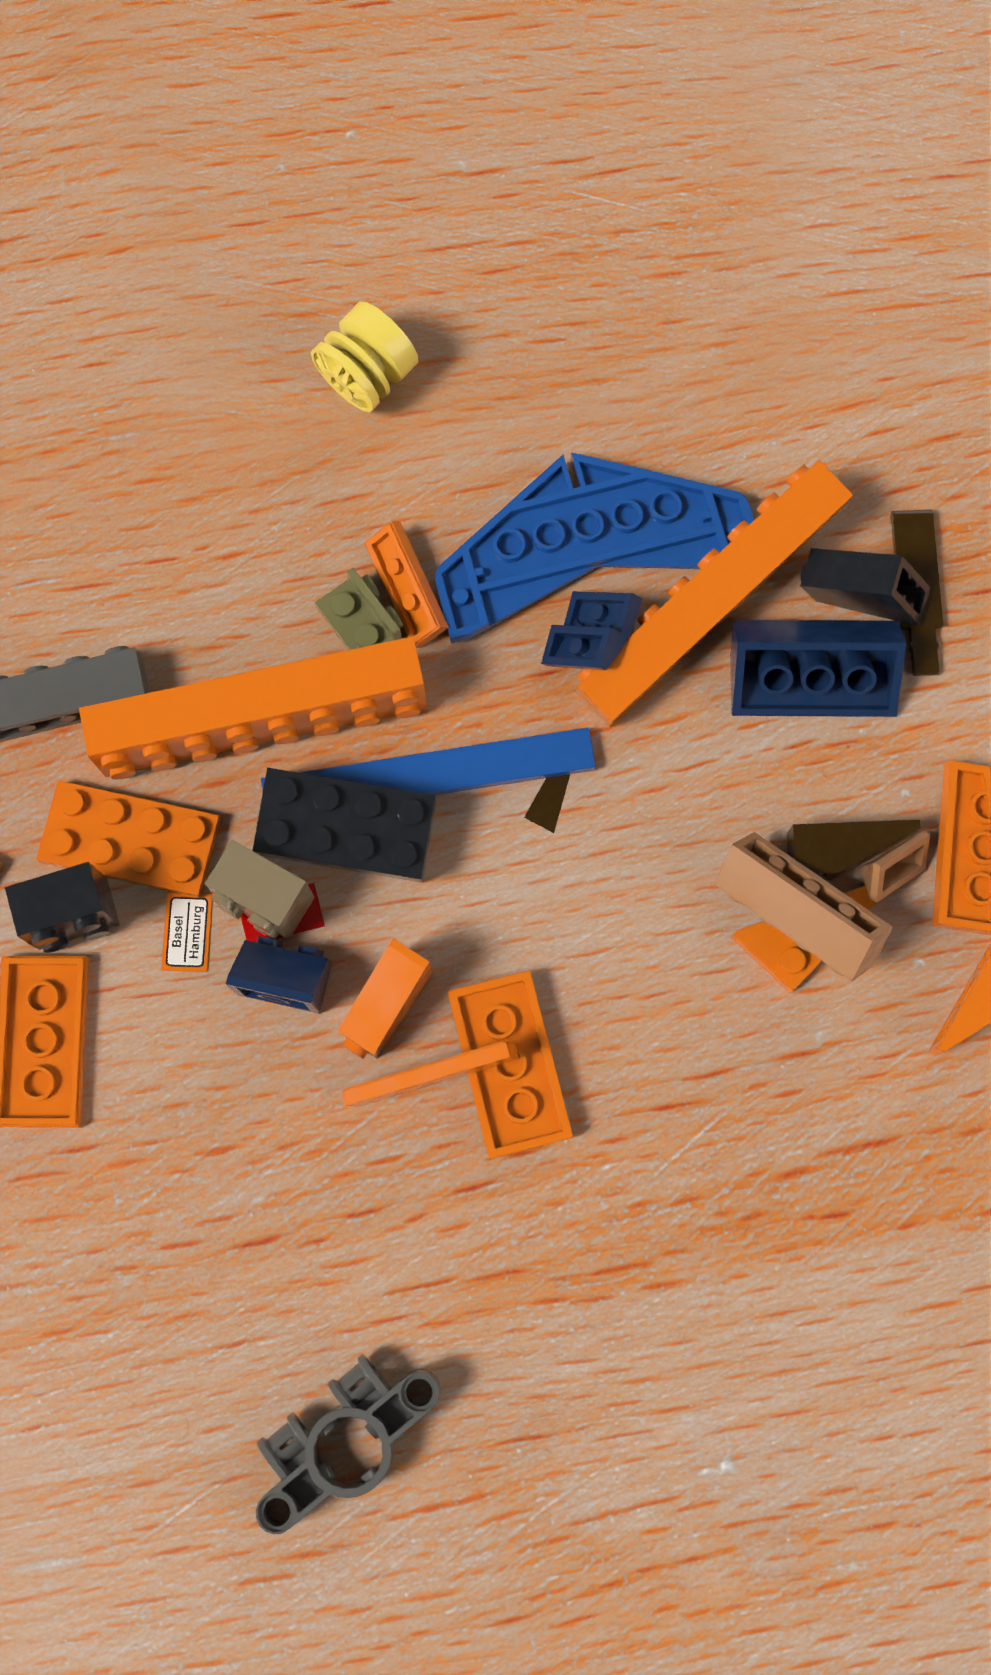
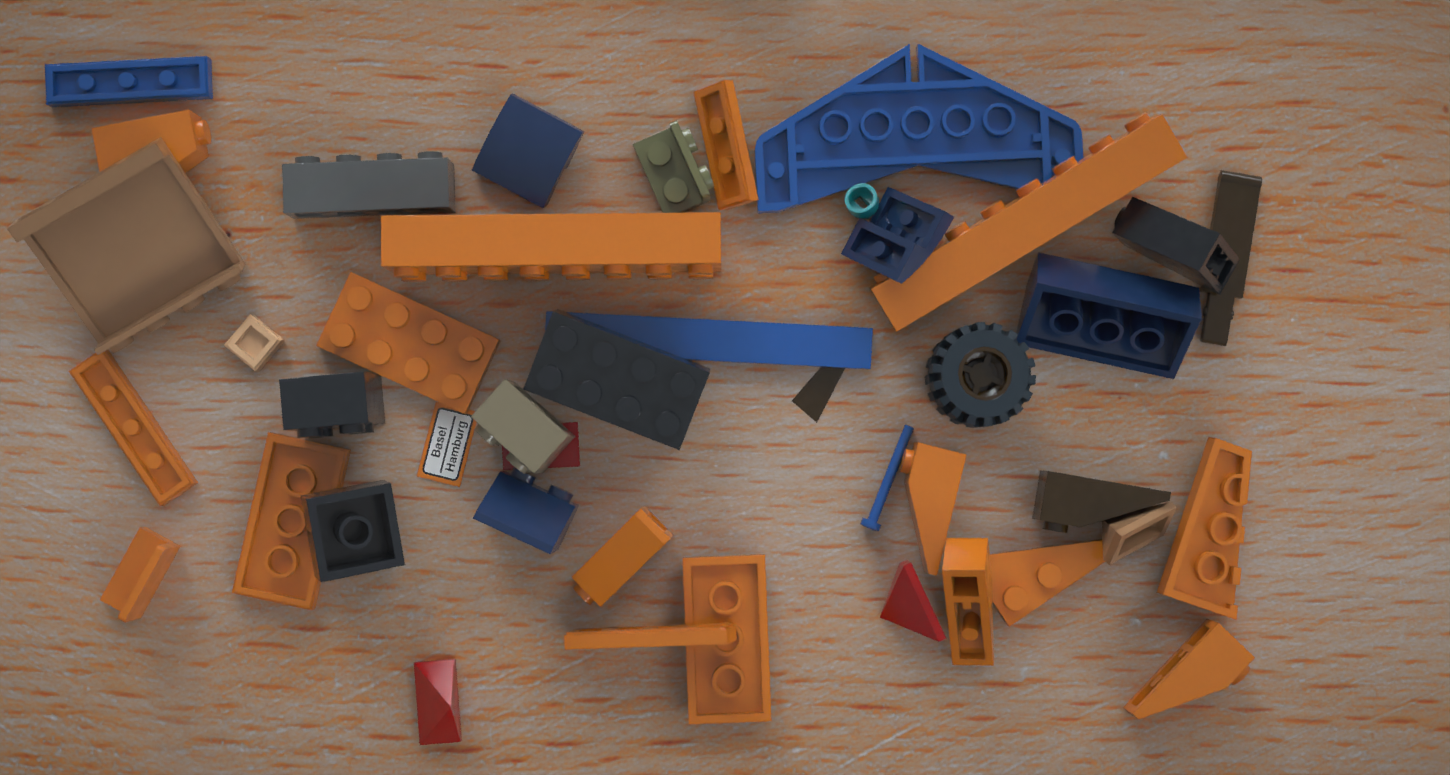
camera: 10 degrees right, 10 degrees up
(105, 1029) = (352, 530): none -> black brick
(212, 629) = (527, 150): none -> dark blue slope
(225, 1196) = (437, 701): none -> red slope
(554, 603) = (867, 195): none -> teal hinge
(630, 917) = (871, 522): none -> blue piece
(682, 873) = (931, 491): none -> orange slope
(688, 991) = (909, 605): none -> red slope
(704, 748) = (980, 375): none -> black wheel
(746, 972) = (969, 600): none -> orange slope
(803, 906) = (1038, 554): medium nougat brick -> none

